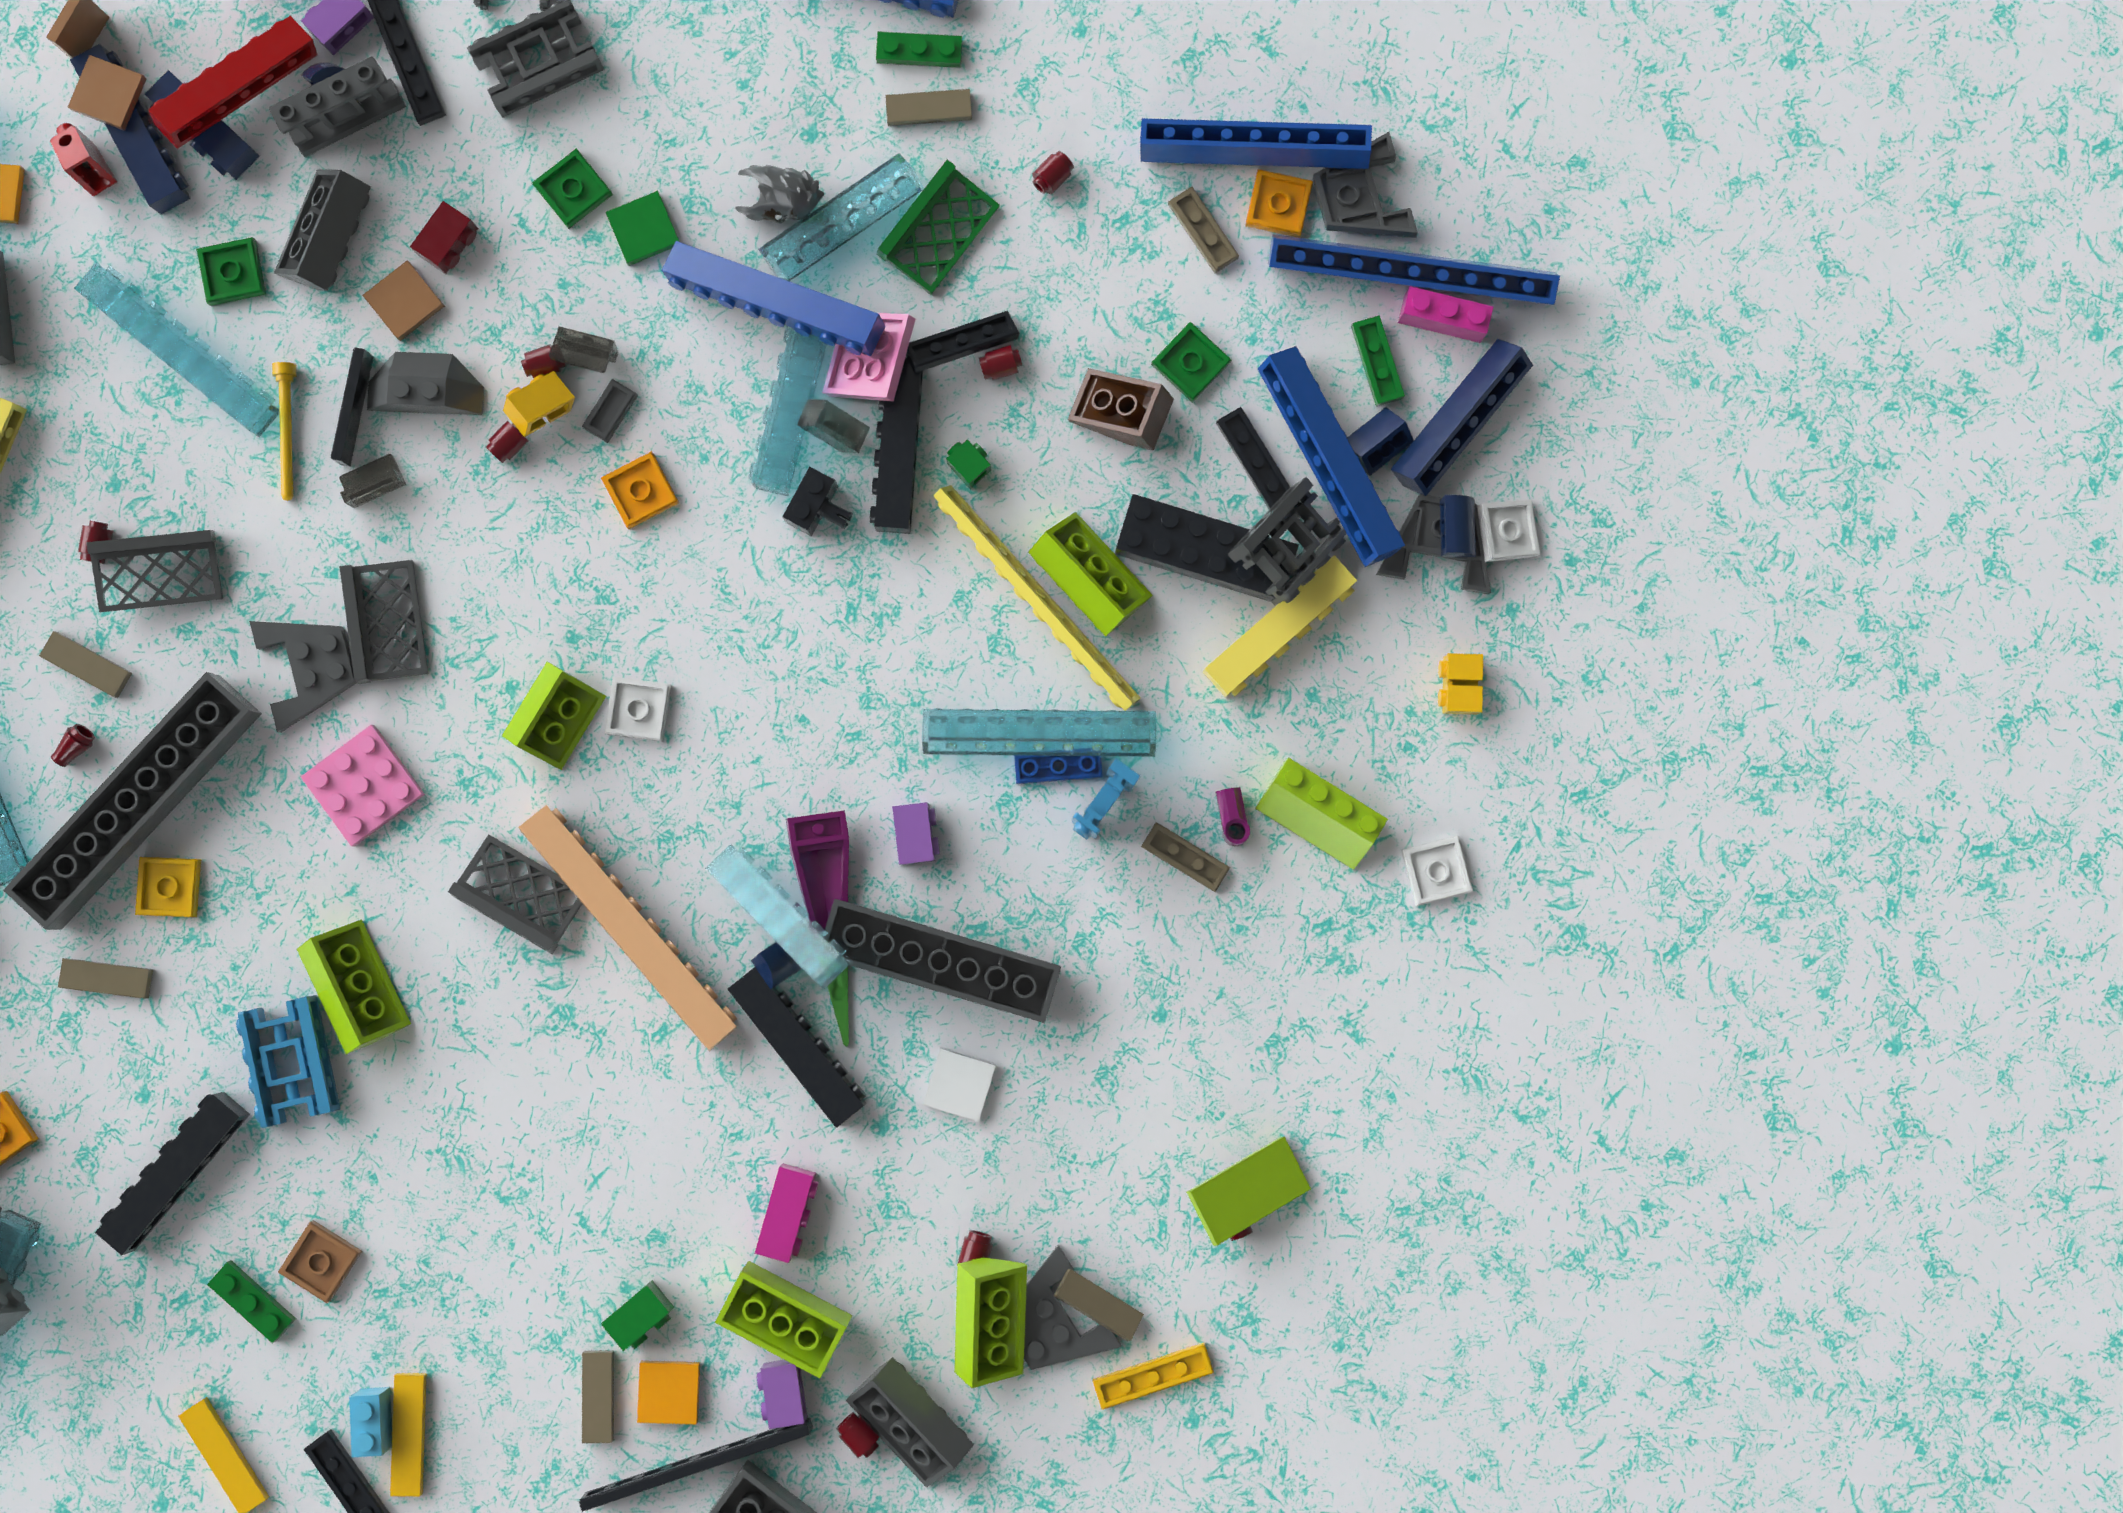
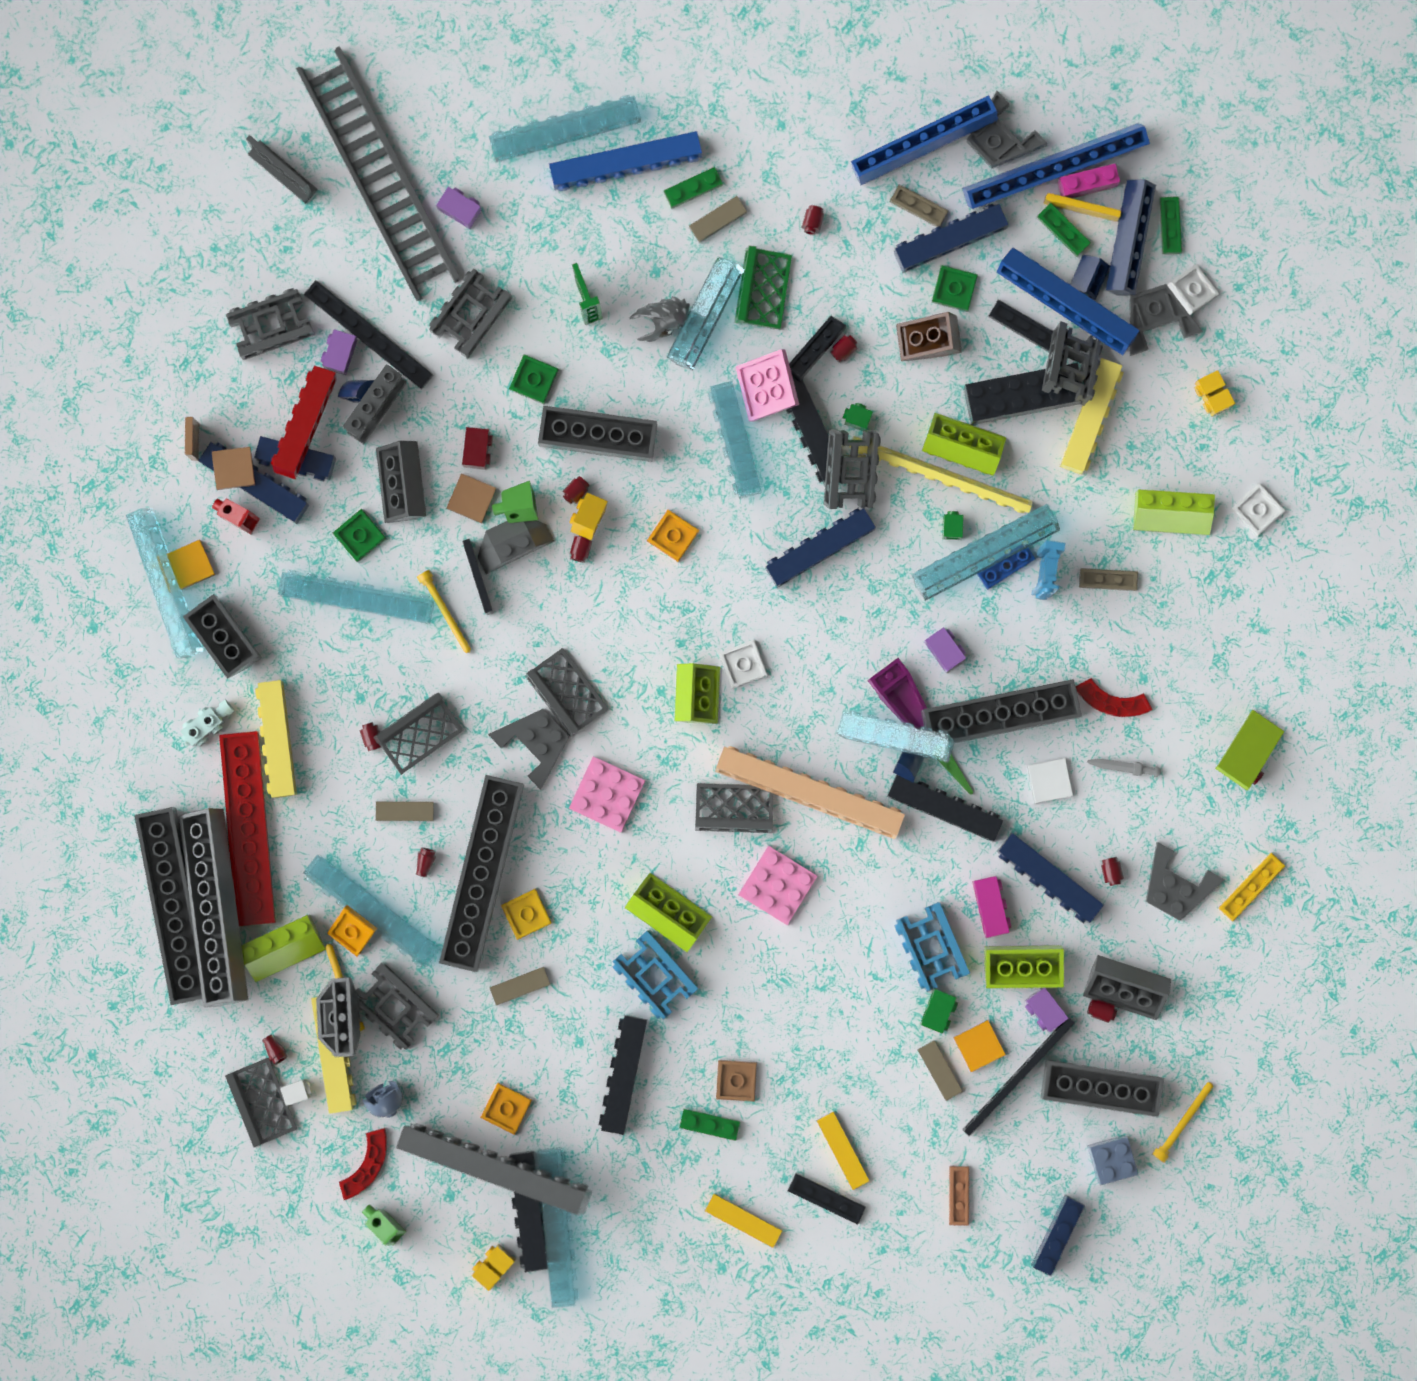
camera: 25 degrees left, 0 degrees up
(370, 1422) = (818, 1153): medium azure brick -> none
(371, 481) = (512, 614): clear smoke panel -> none
(456, 337) = (517, 503): none -> bright green torso
(520, 1028) = (777, 885): none -> bright pink plate
(583, 350) = (596, 471): clear smoke panel -> none
(609, 410) = (629, 498): dark grey tile -> none
(611, 301) = (597, 433): none -> dark grey brick
(642, 228) = (589, 380): green tile -> none
(686, 111) = (590, 307): none -> green fence
(701, 1226) = (947, 940): none -> dark azure fence
(773, 299) = (694, 381): brick -> none
(813, 503) = (781, 488): black brick -> none
(823, 608) = (820, 547): none -> dark blue brick
(833, 426) = (769, 437): clear smoke brick -> none
(886, 1218) = (1050, 878): none -> dark blue brick
(898, 515) = (837, 469): none -> dark grey fence
(990, 1320) = (1142, 902): lime slope -> none
(1015, 674) = (952, 526): none -> green brick
(1084, 1131) = (1136, 768): none -> light grey sword
(1098, 1027) = (1110, 704): none -> red tile
(1098, 1305) = (1199, 862): dark tan tile -> none
(1222, 291) = (950, 238): none -> dark blue brick
(1232, 813) = (1121, 539): magenta piece -> none
(1279, 203) = (954, 167): light orange tile -> none
(1419, 343) = (1082, 207): none -> yellow tile
(1457, 526) = (1163, 303): dark blue brick -> none
(1524, 430) = (1170, 225): none -> green tile

